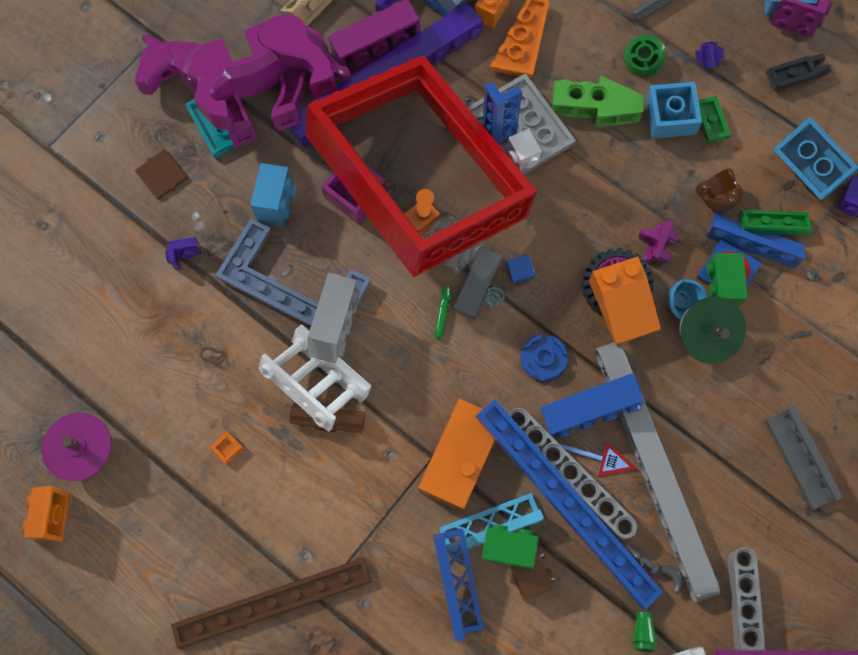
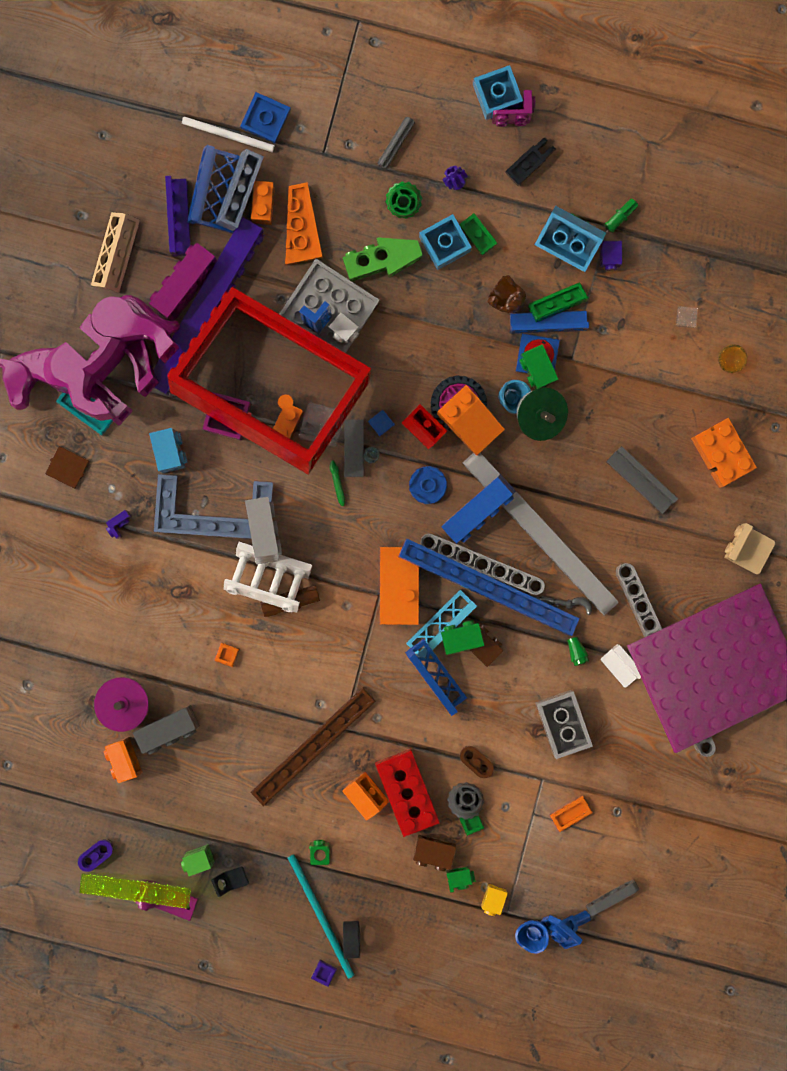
camera: 30 degrees left, 15 degrees up
(111, 500) = (166, 730): none -> dark grey brick
(568, 289) = (424, 426): none -> red brick
(611, 461) = (507, 540): piece -> none
(656, 240) = (476, 349): magenta hips -> none

